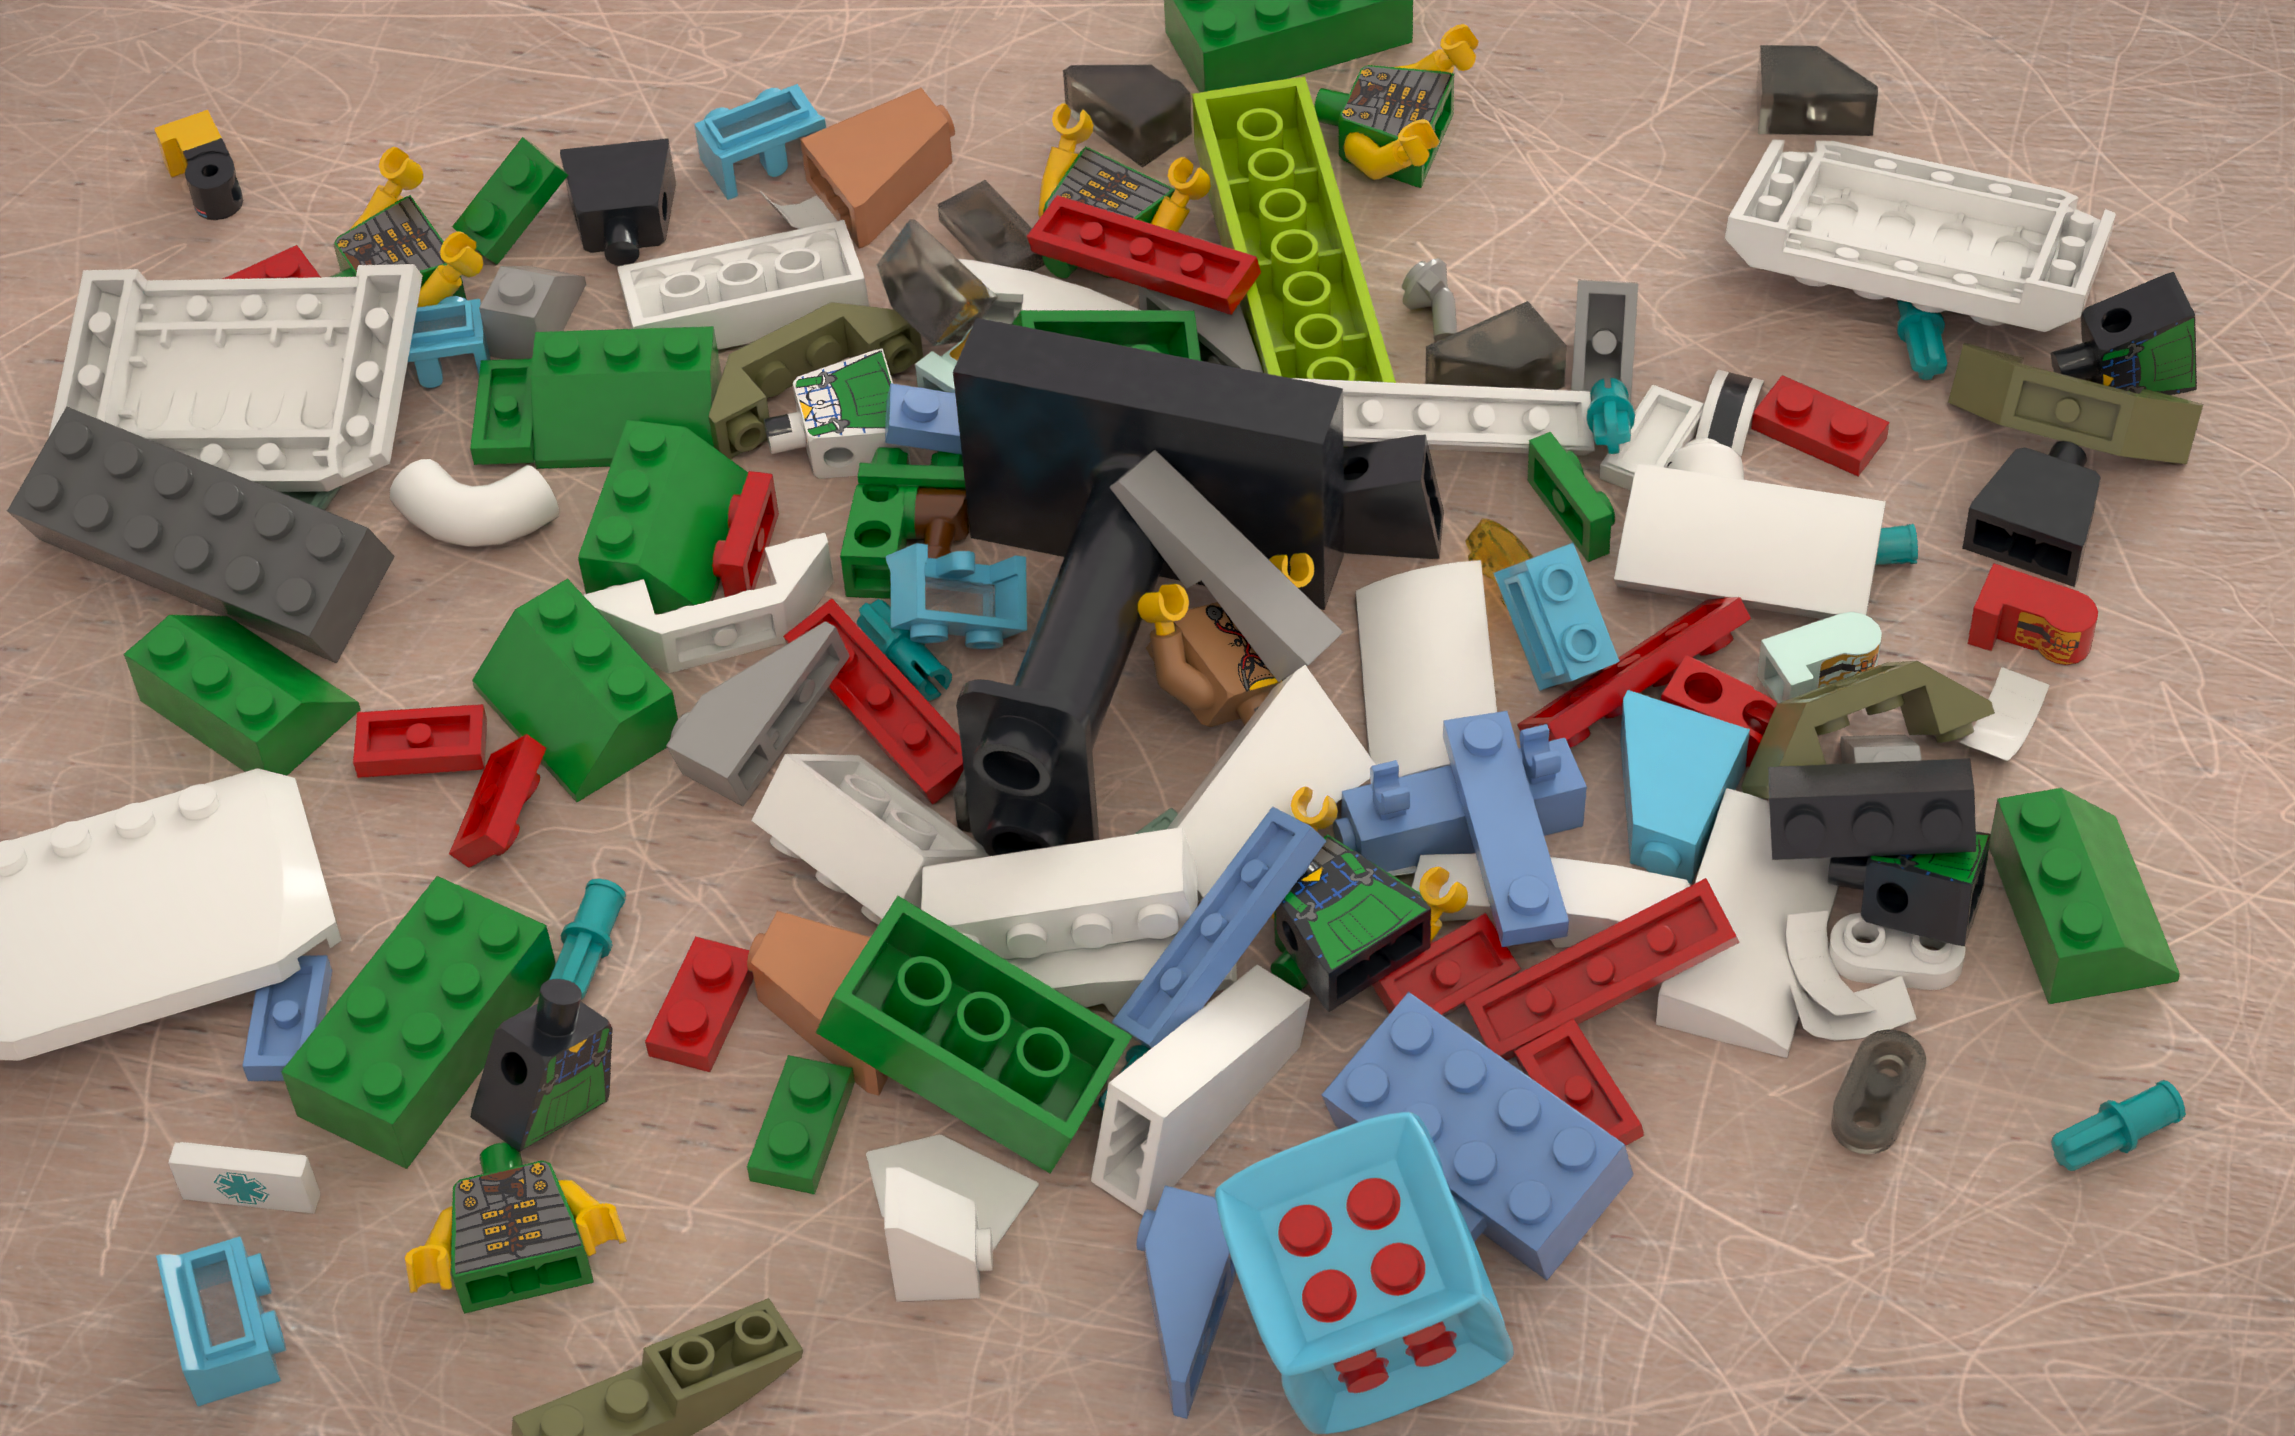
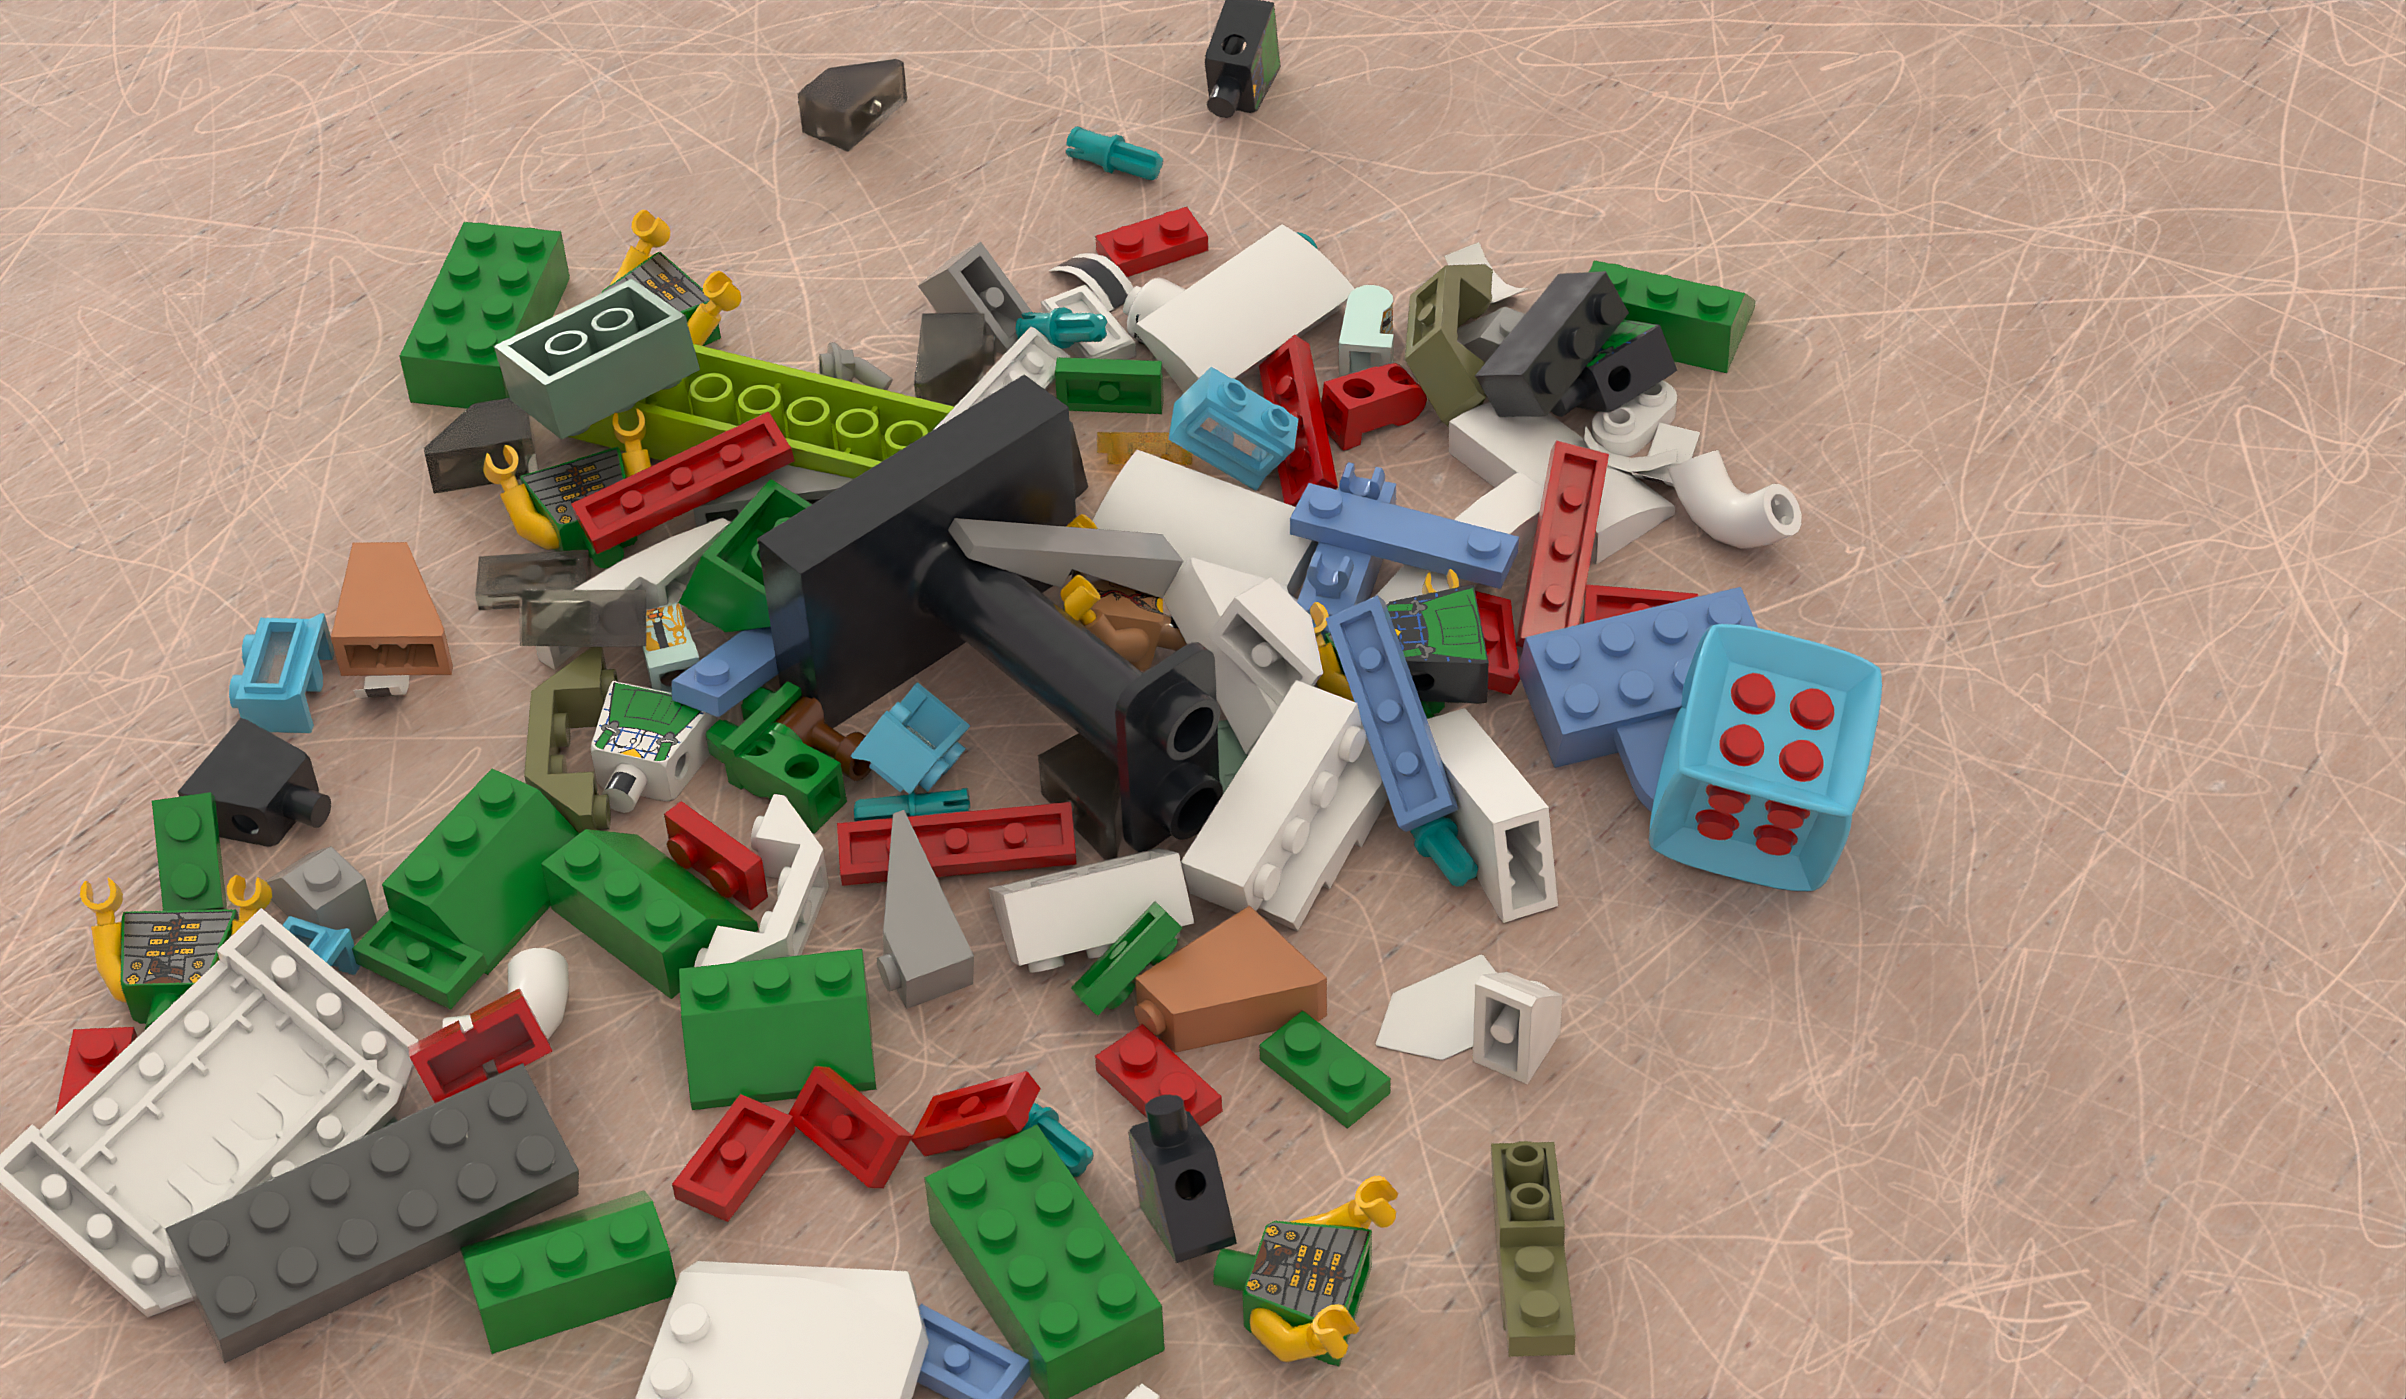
camera: 60 degrees left, 5 degrees down
(383, 494) = (500, 1031): none -> red piece
(553, 882) = (976, 1114): none -> red plate
(746, 284) = (434, 751): white slope -> none
(826, 897) = (1111, 976): none -> green plate
(973, 1034) = (1363, 899): green brick -> none
(1187, 1285) = (1656, 898): medium blue slope -> none
(1210, 100) = (597, 358): none -> sand green brick
(1240, 779) = (1269, 639): none -> white slope
(1675, 781) = (1417, 449): medium azure slope -> none
(1801, 1091) = (1727, 512): none -> white cylinder
(1875, 1095) = (1748, 464): clear smoke plate -> none
(1920, 234) = (1049, 104): white slope -> none
(2033, 616) = (1416, 220): red leg -> none
(2036, 512) = (1336, 175): black torso -> none
(2074, 409) = (1254, 119): olive slope -> none
(2118, 1126) = (1857, 380): teal axle -> none

